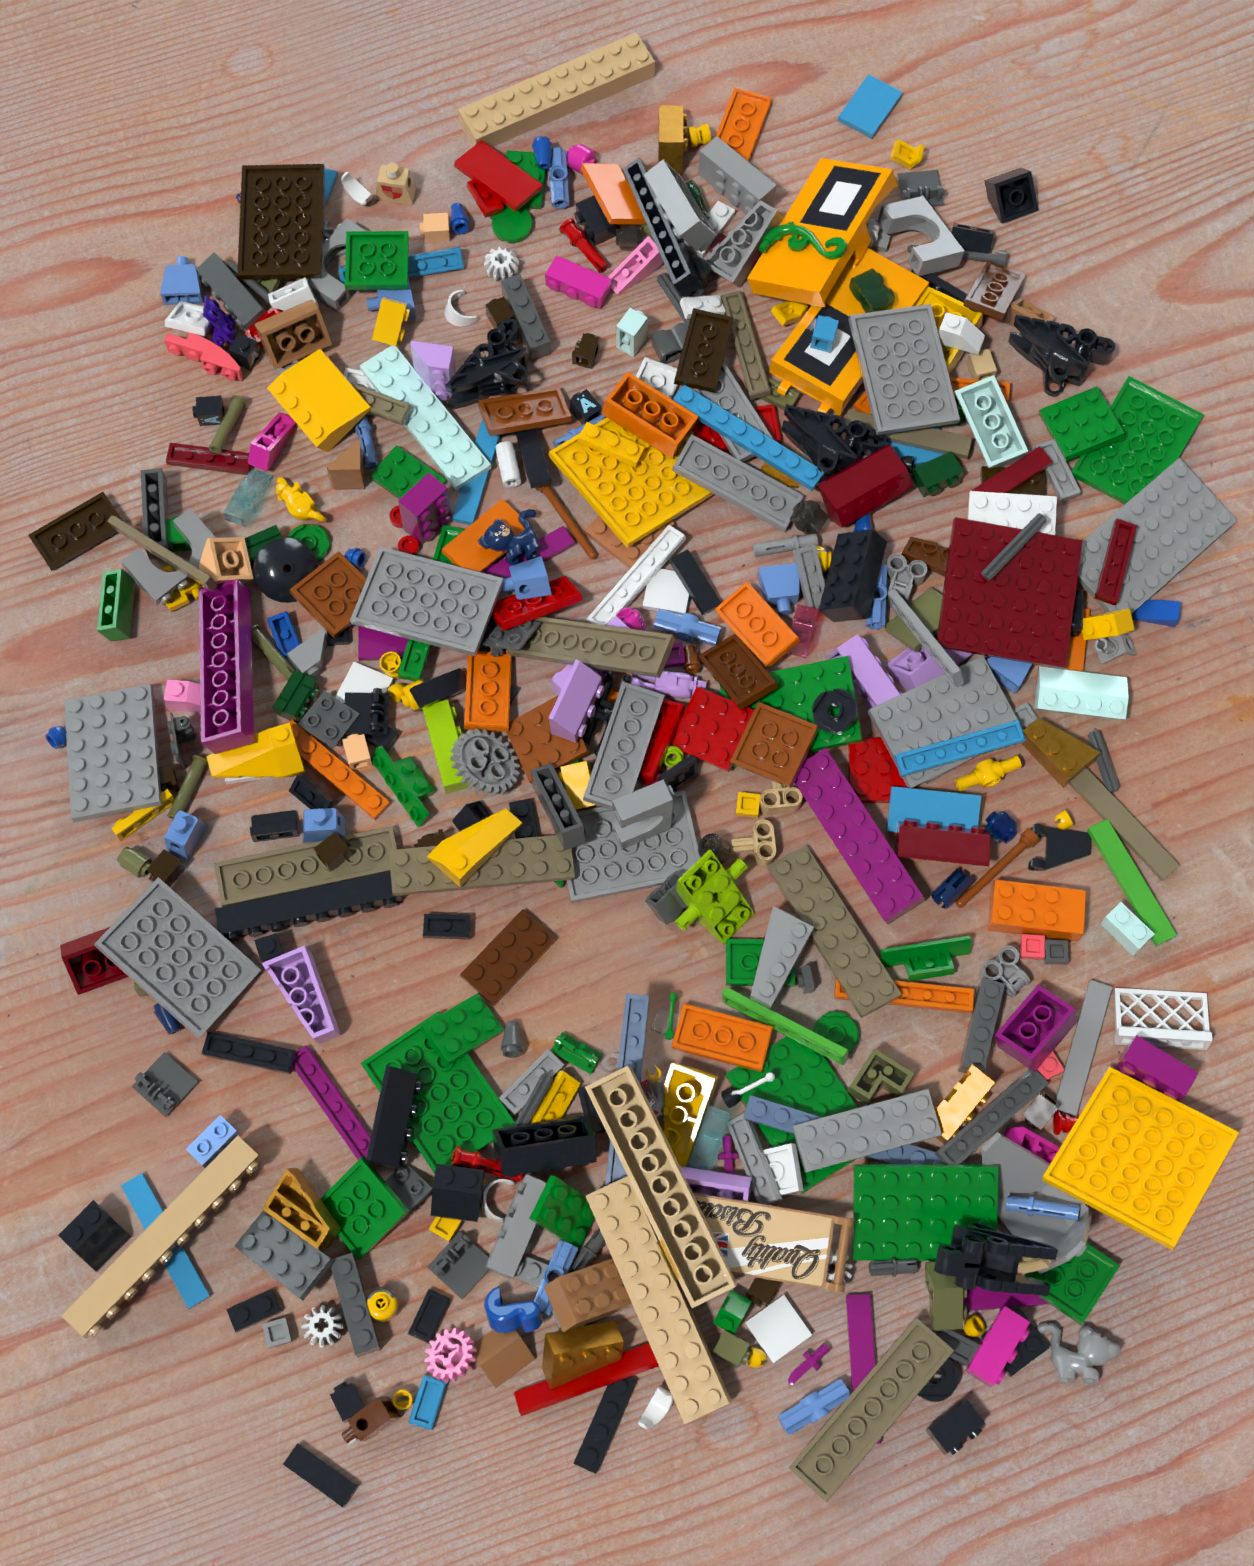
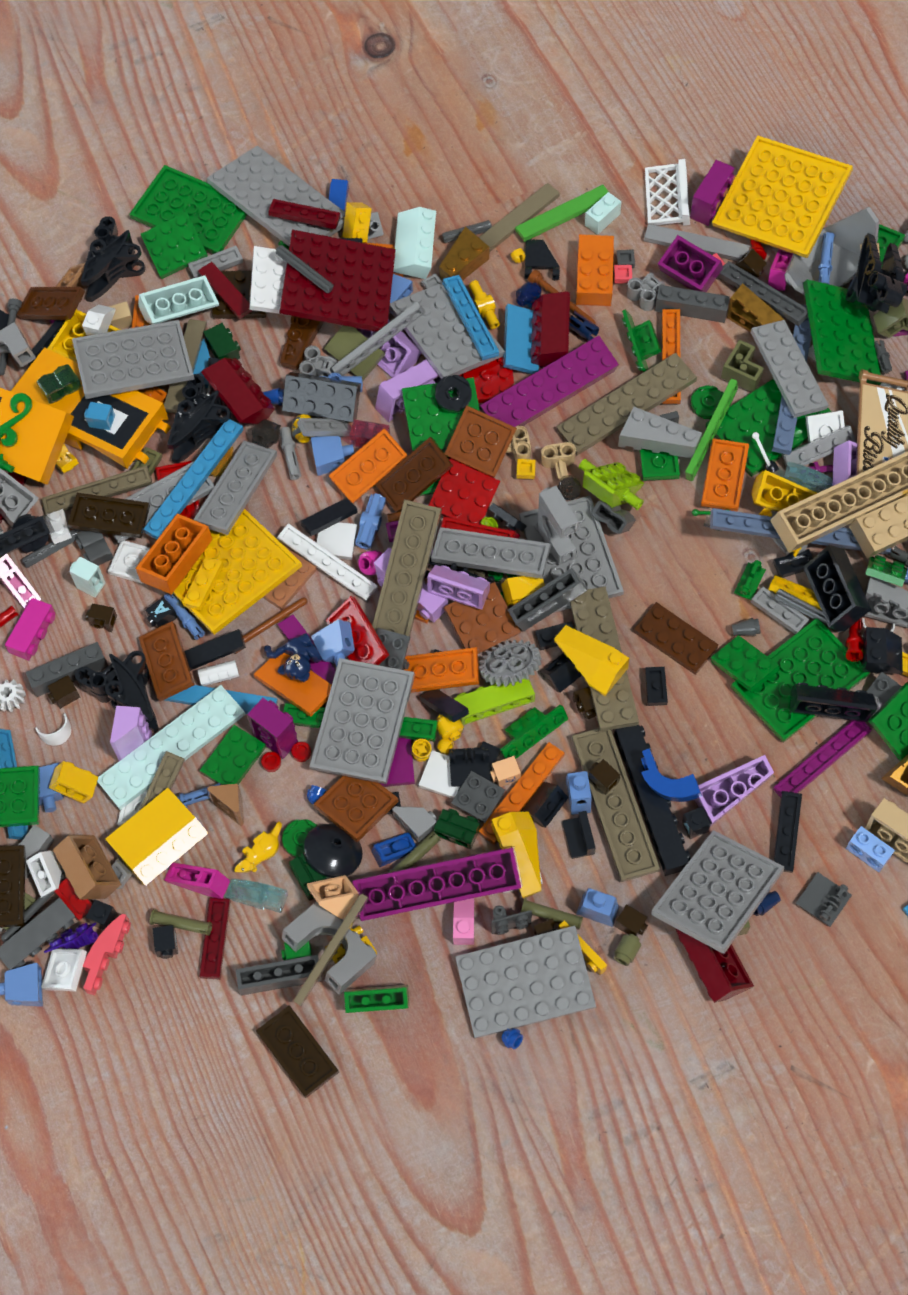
camera: 90 degrees left, 5 degrees down
(307, 911) = (671, 789): none -> blue arch

